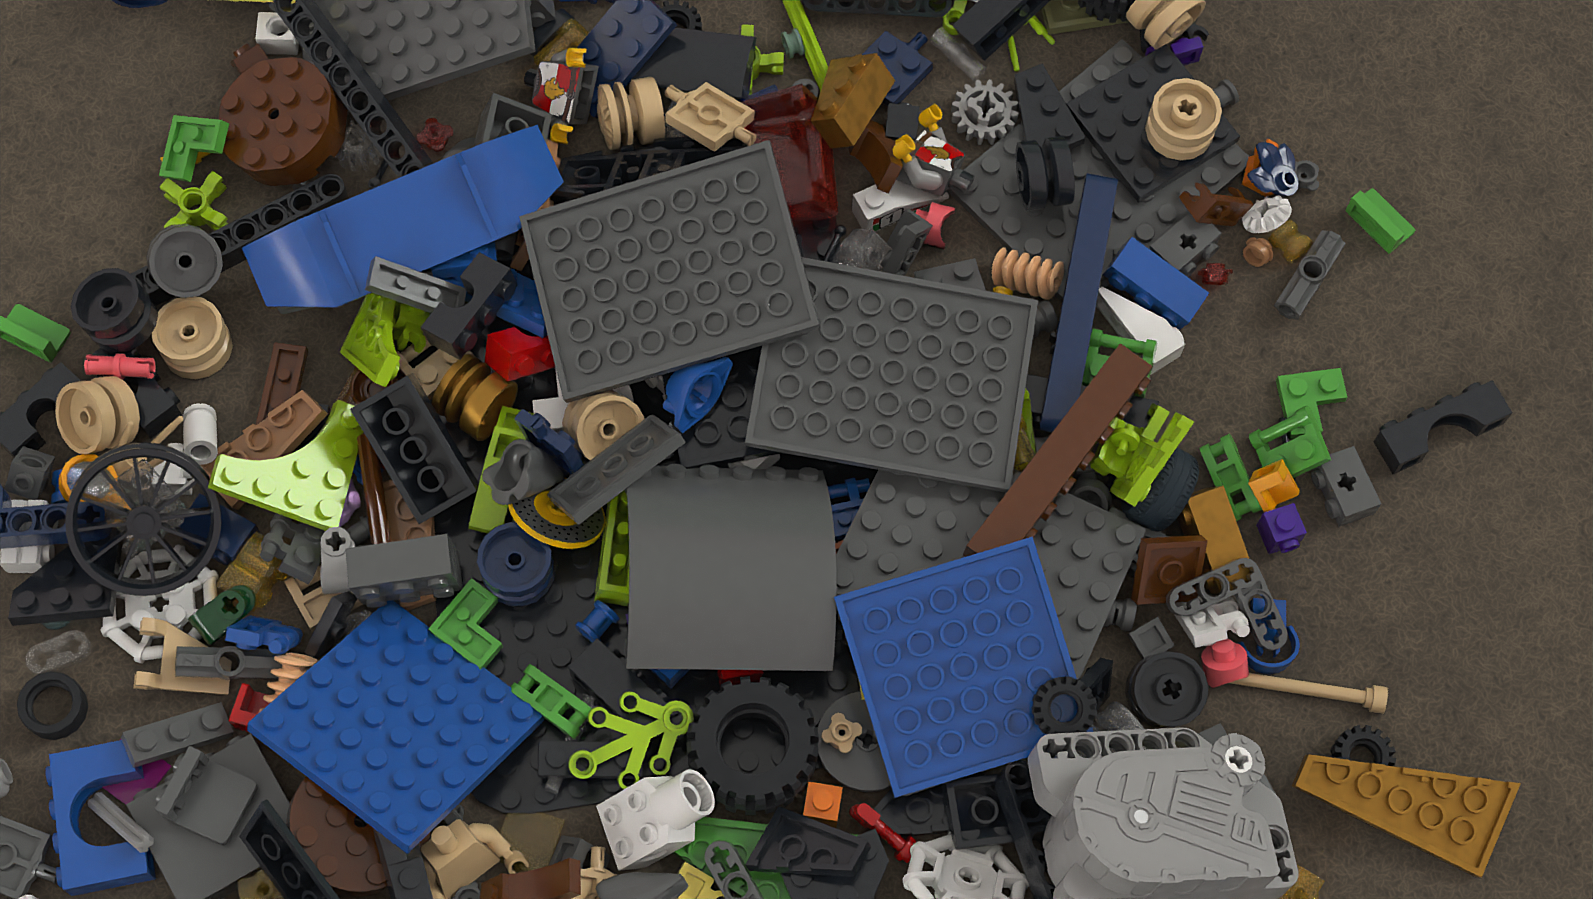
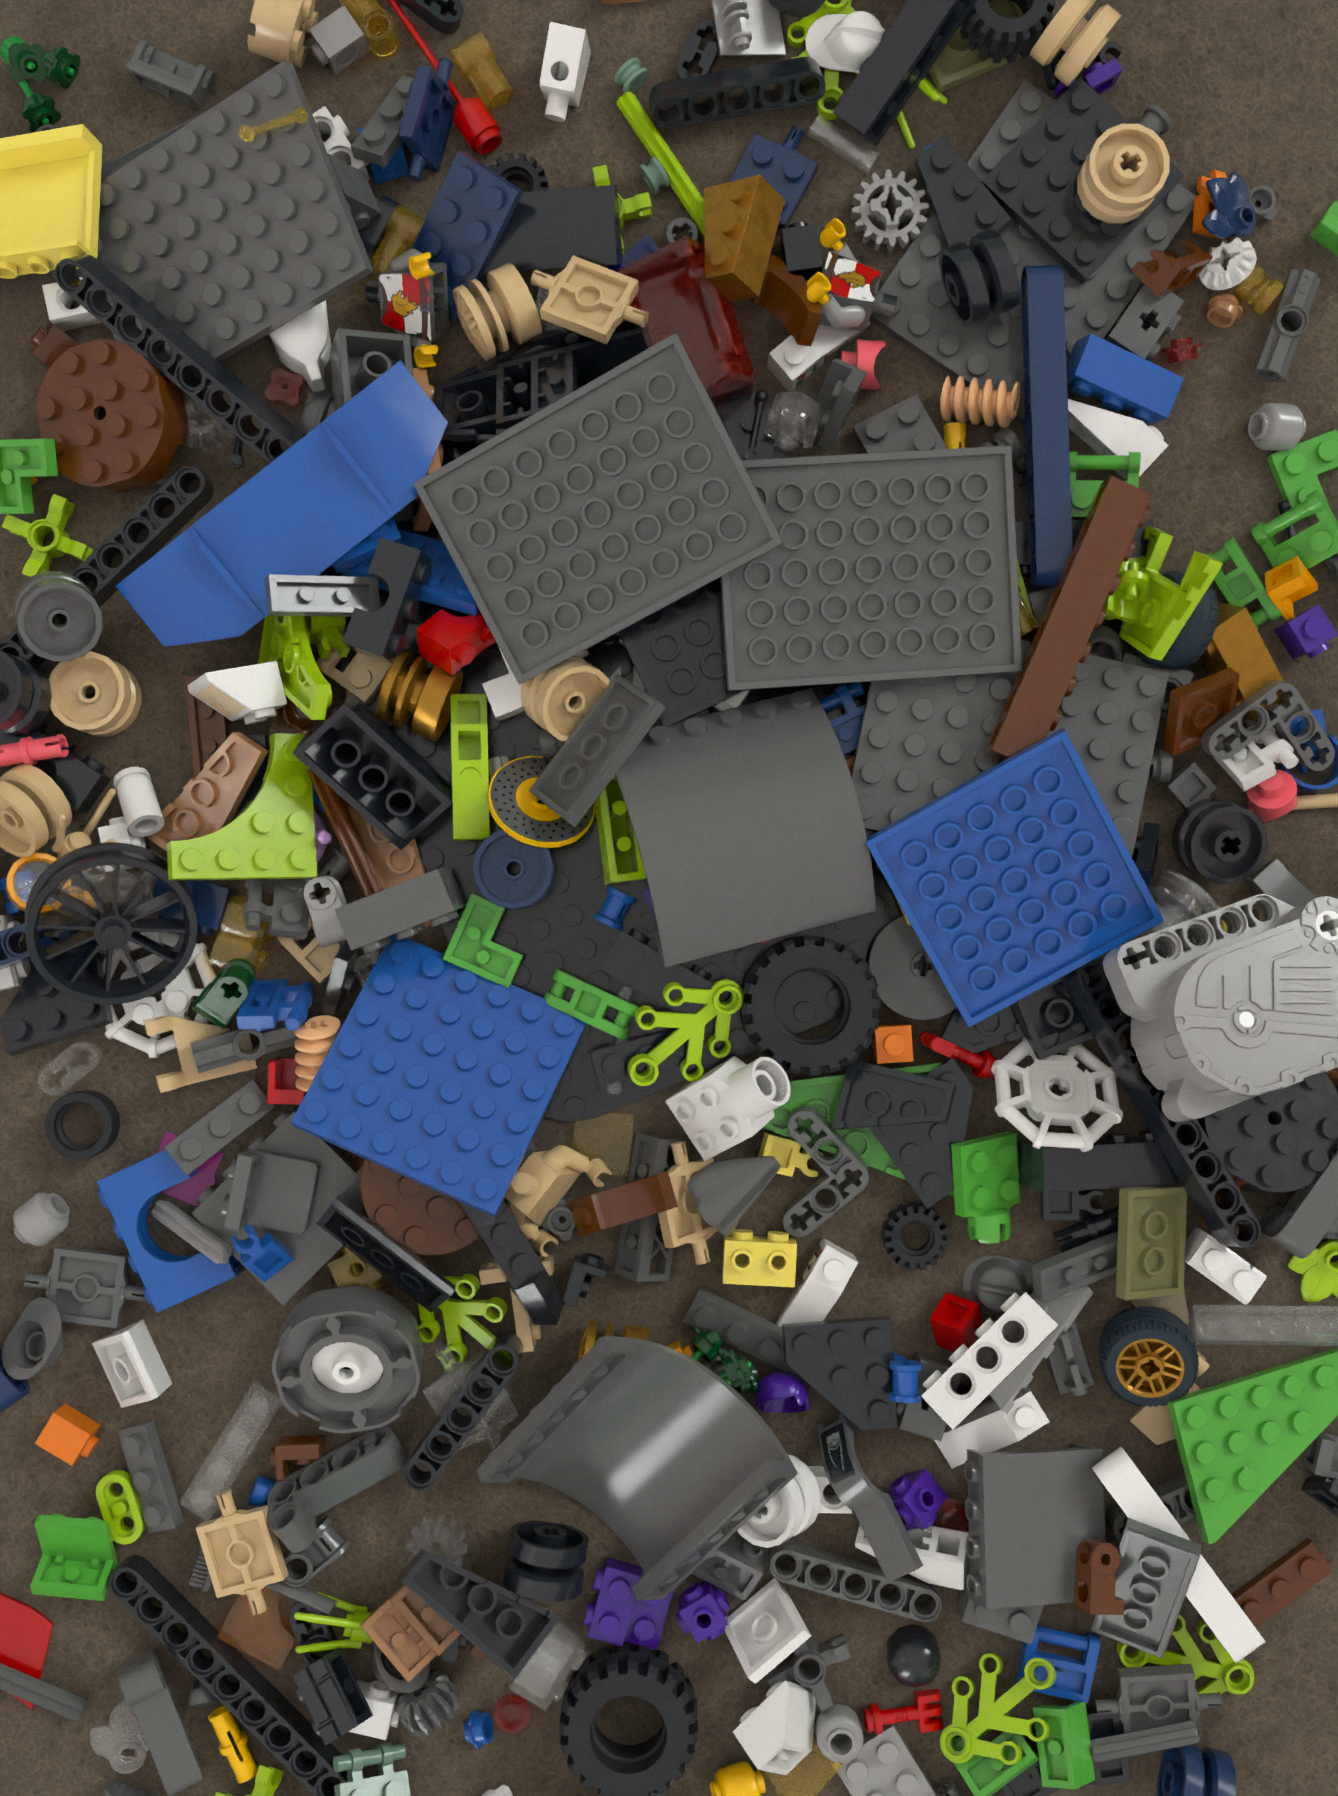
camera: 10 degrees left, 20 degrees up
(180, 852) = (262, 1255): none -> blue plate
(320, 359) = (242, 692): none -> white slope
(464, 100) = (305, 345): none -> white piece
(521, 473) = (495, 778): dark grey hat -> none
(557, 445) = (509, 729): dark blue plate -> none
(695, 390) = (657, 642): blue hat -> none
(844, 742) = (906, 965): tan plate -> none
(1069, 686) = (1146, 918): black tyre -> none
(1286, 353) = (1277, 426): none -> light grey head

